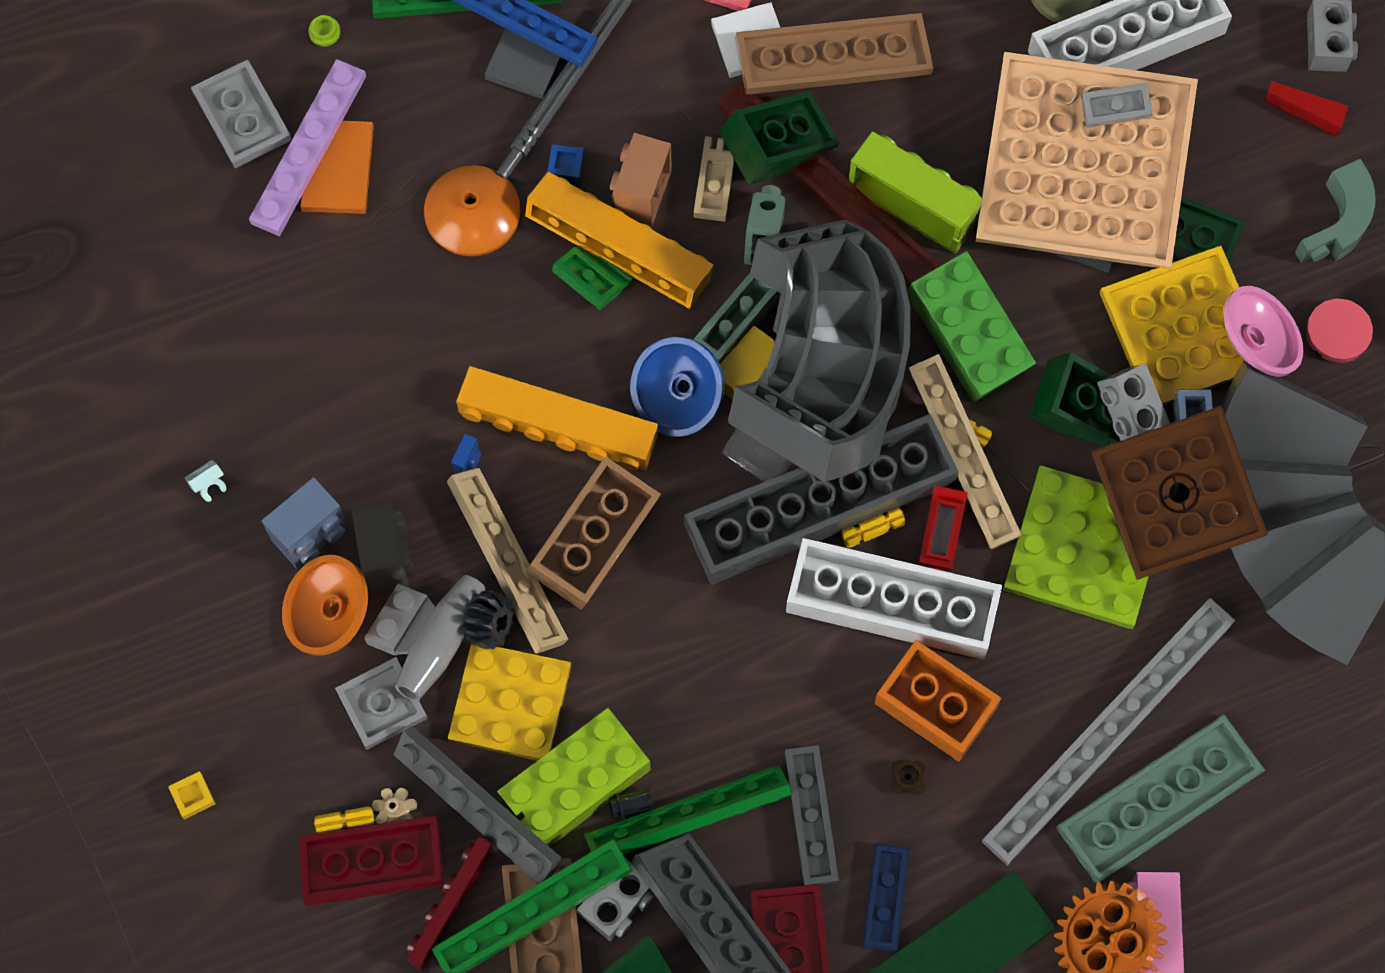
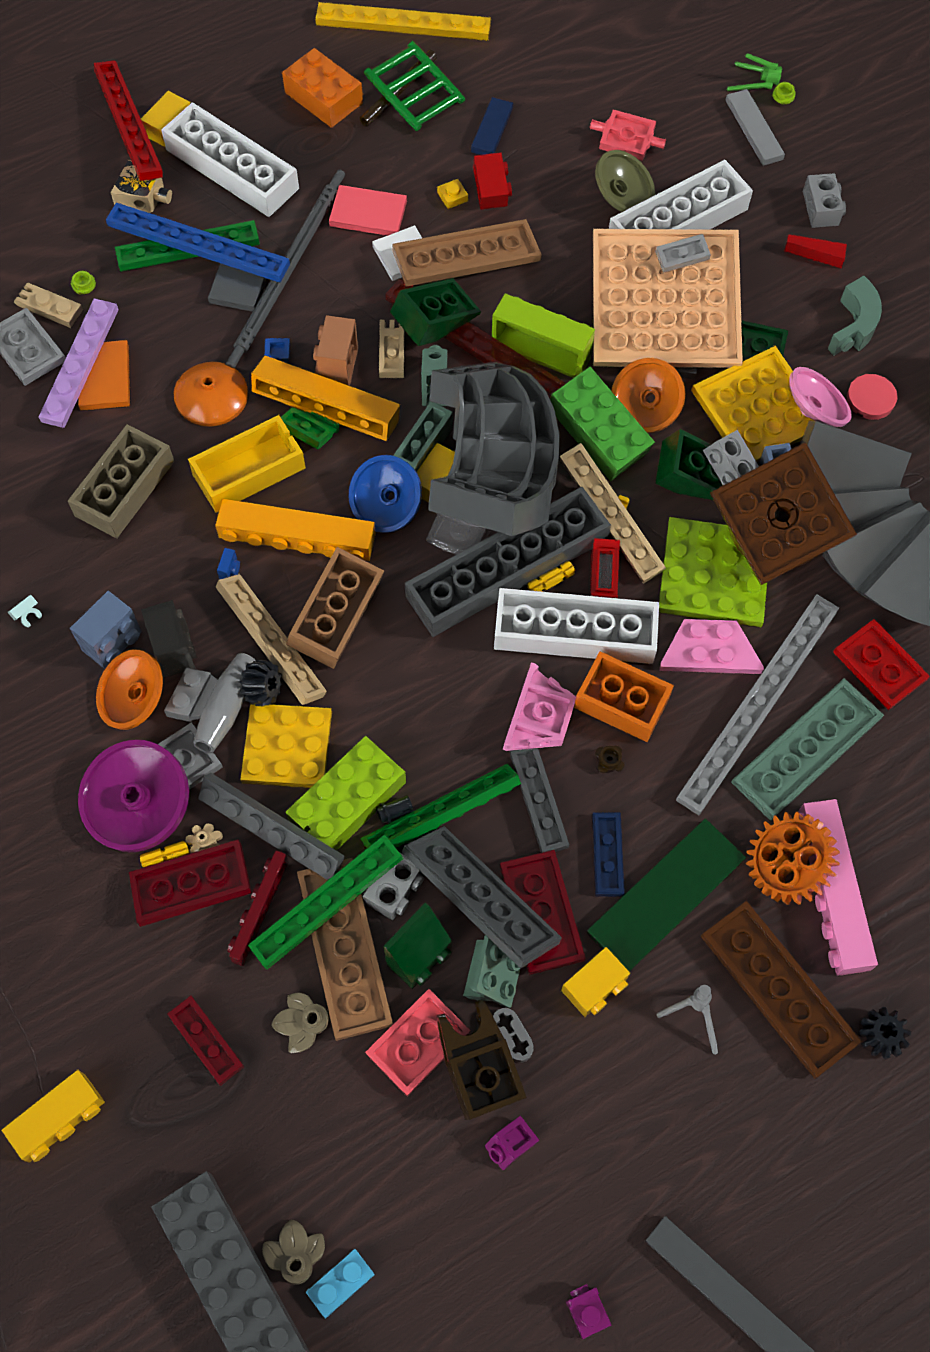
camera: 10 degrees left, 5 degrees down
(191, 795) = (37, 852): yellow plate -> none
(277, 56) = (49, 305): none -> tan hinge
(315, 742) = (133, 796): none -> magenta dish
(345, 322) = (121, 481): none -> dark tan brick
(507, 320) = (247, 462): none -> yellow piece
(830, 706) = (540, 713): none -> bright pink wing
(1019, 290) = (649, 378): none -> orange dish
(1061, 649) = (711, 647): none -> bright pink wing
(1275, 702) = (881, 664): none -> red plate

